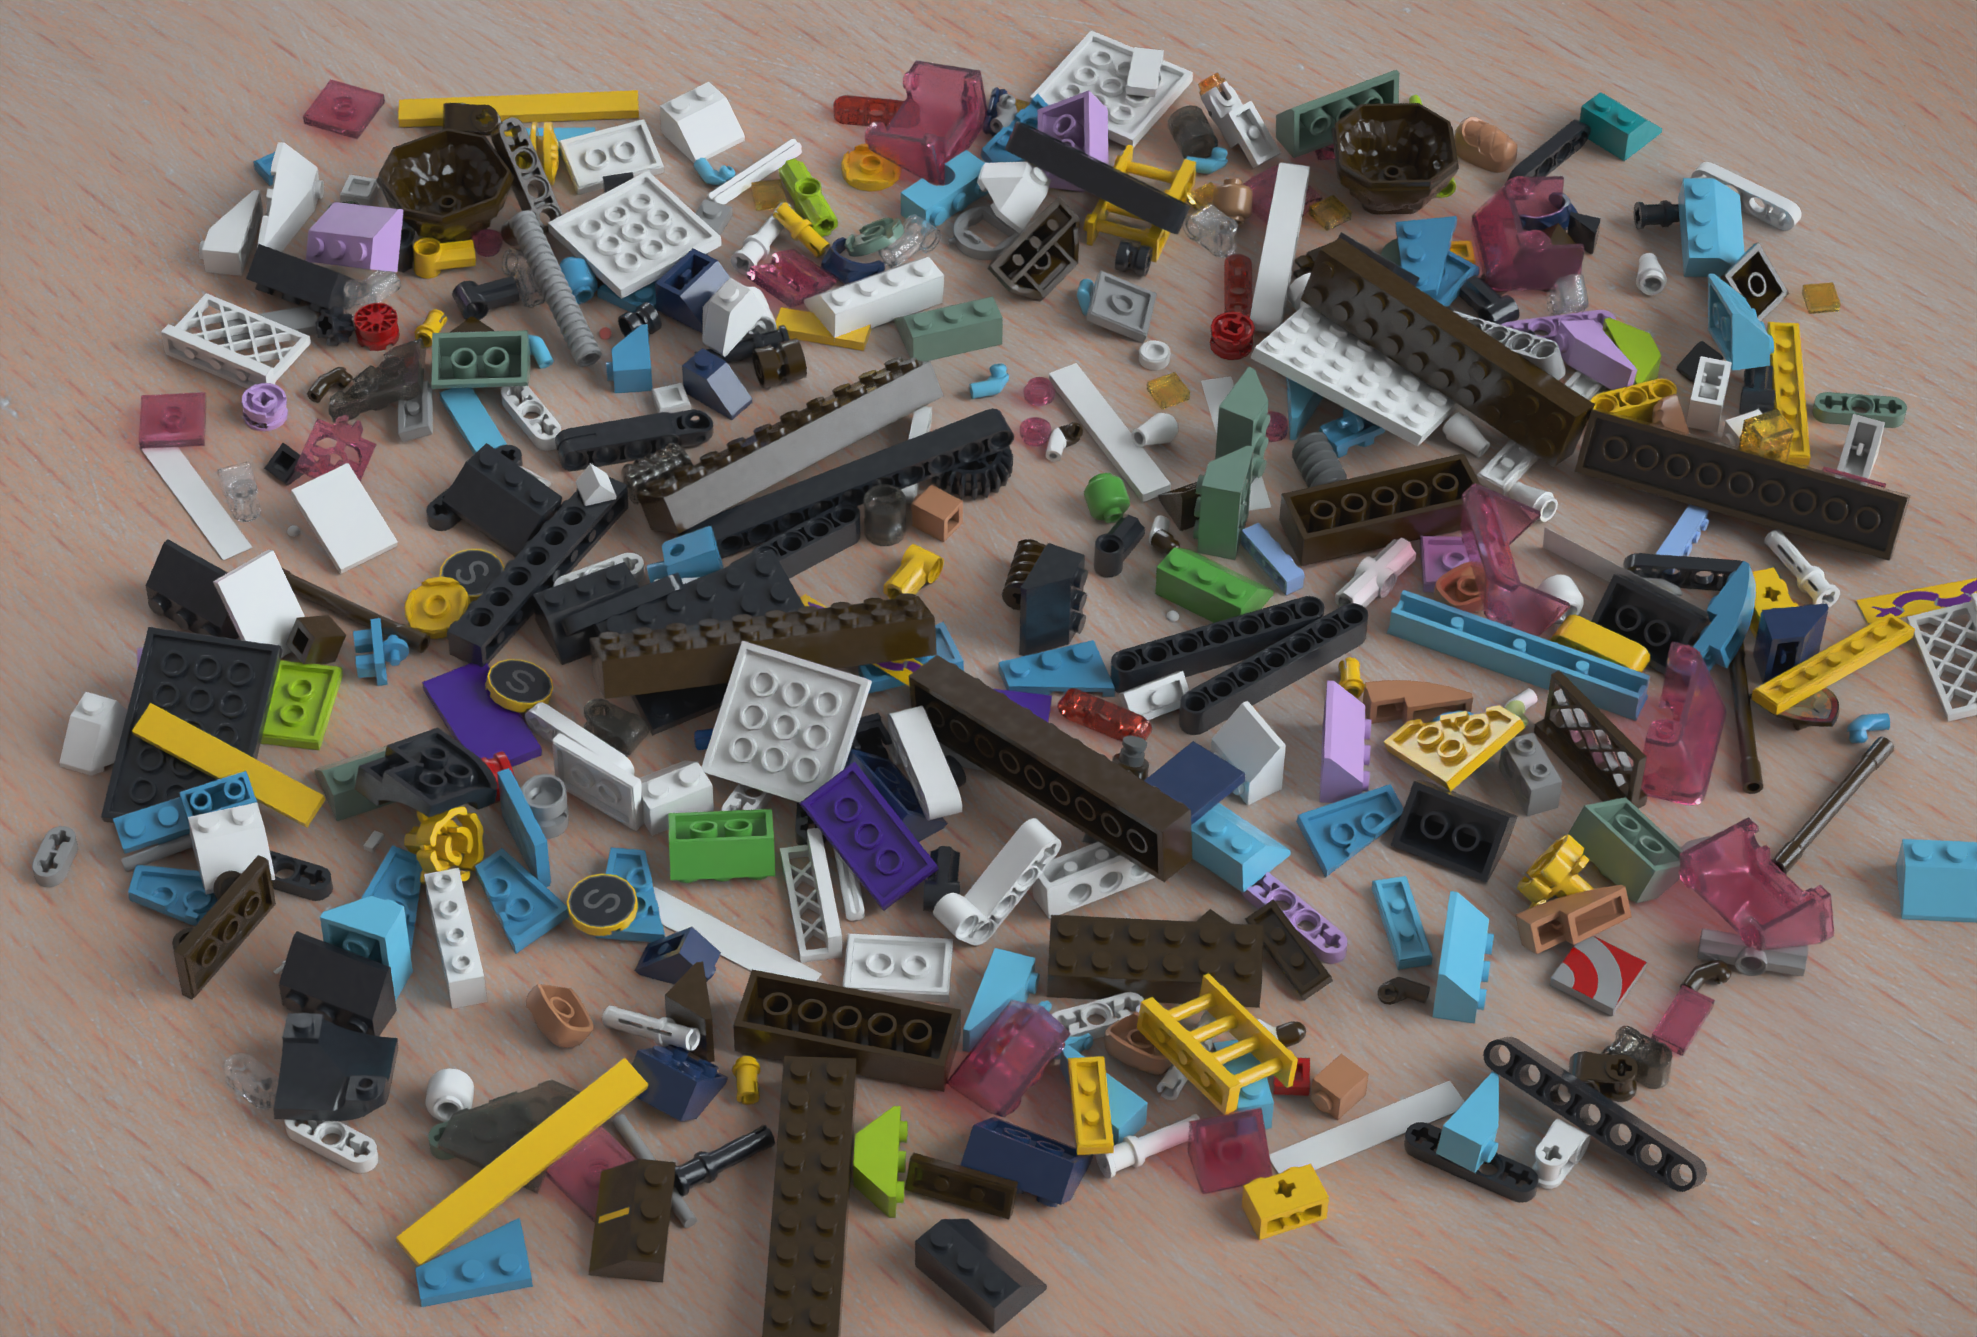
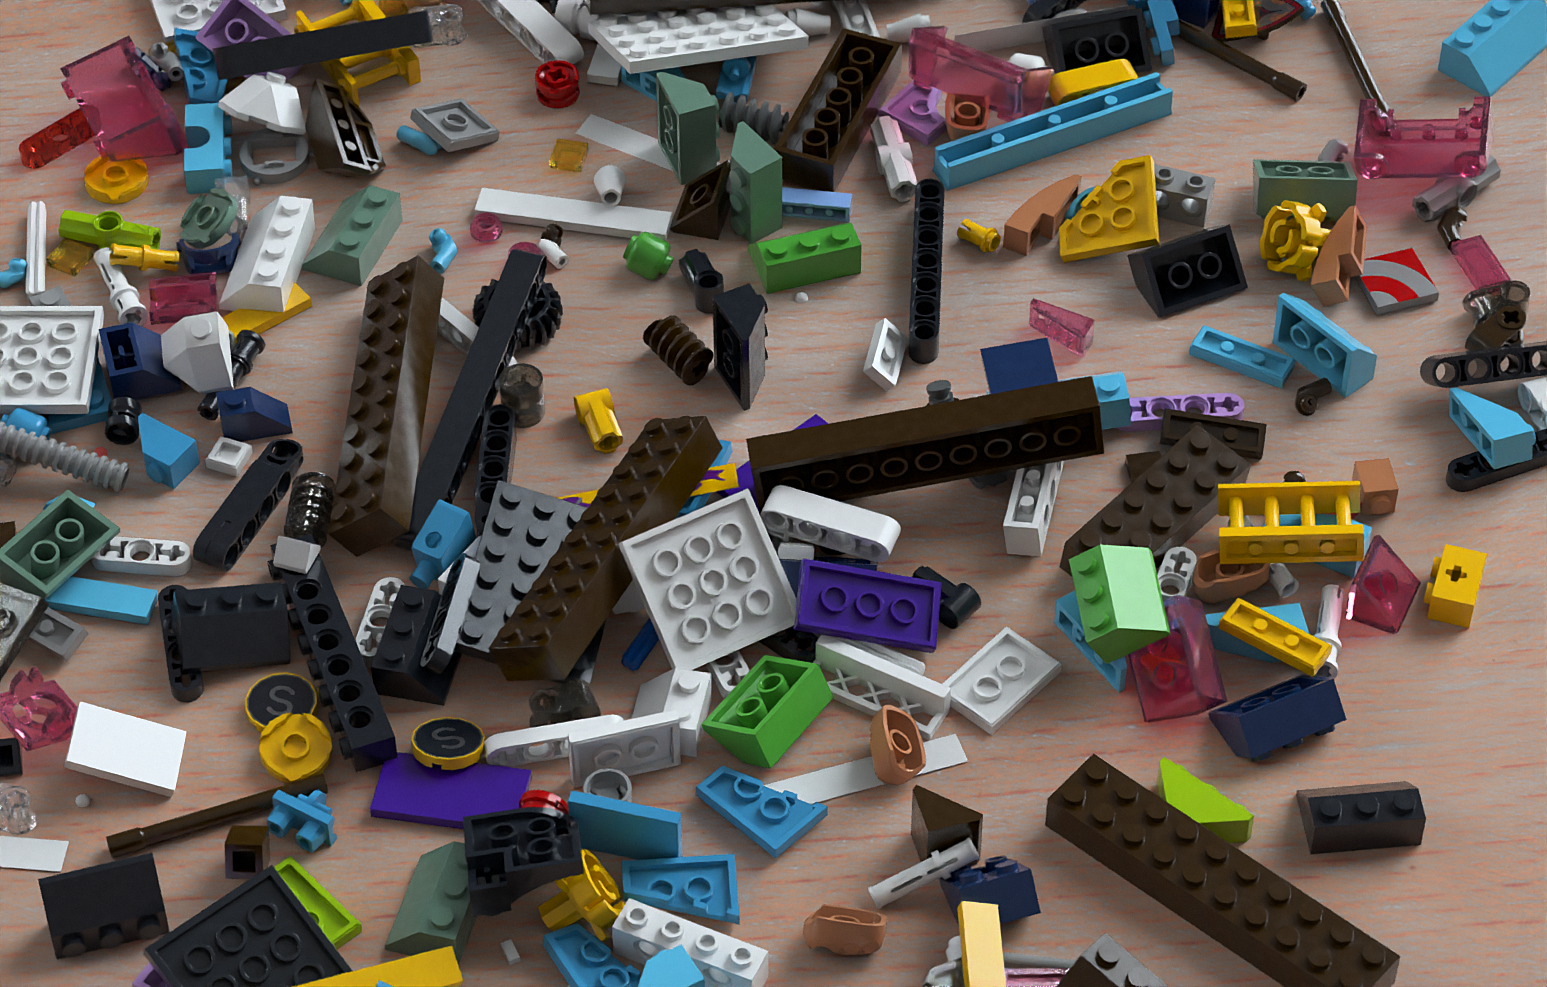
camera: 50 degrees left, 0 degrees up
(260, 601) = (182, 859): white tile -> none
(602, 904) = (759, 826): black tile -> none
(675, 954) = (860, 813): dark blue slope -> none
(706, 1166) = (1097, 912): black pin -> none
(746, 1073) = (1027, 845): yellow pin -> none
(760, 938) = (896, 746): none -> nougat piece
(777, 363) = (277, 360): dark brown wheel -> none
(886, 1034) = (1047, 743): dark brown brick -> none
(887, 764) = (796, 551): none -> white tile
(937, 513) = (554, 362): nougat brick -> none
(961, 1185) = (1270, 769): dark brown tile -> none
(1001, 885) = (1003, 550): white beam -> none
(1010, 975) = (1119, 599): none -> bright green slope
(1058, 670) = (792, 394): dark azure wing -> none
(1086, 711) = (892, 389): clear red beam -> none
(1133, 258) = (411, 87): black wheel -> none
(1154, 355) = (521, 141): white tile -> none
(1160, 537) = (720, 253): dark brown arm -> none
(1212, 644) = (867, 288): black beam -> none
(1241, 281) = (493, 42): clear red beam -> none
(1254, 749) = (1003, 321): white slope -> none
(1305, 789) = (1062, 326): none -> clear pink slope
(1343, 746) = (1043, 276): lavender slope -> none
(1349, 826) = (1123, 326): dark azure wing -> none
(1369, 1129) = (1421, 499): white sticker -> none
(1522, 702) = (1098, 164): arm -> none
(1579, 751) = (1214, 162): dark brown fence -> none
(1684, 748) = (1203, 64): clear pink windscreen -> none

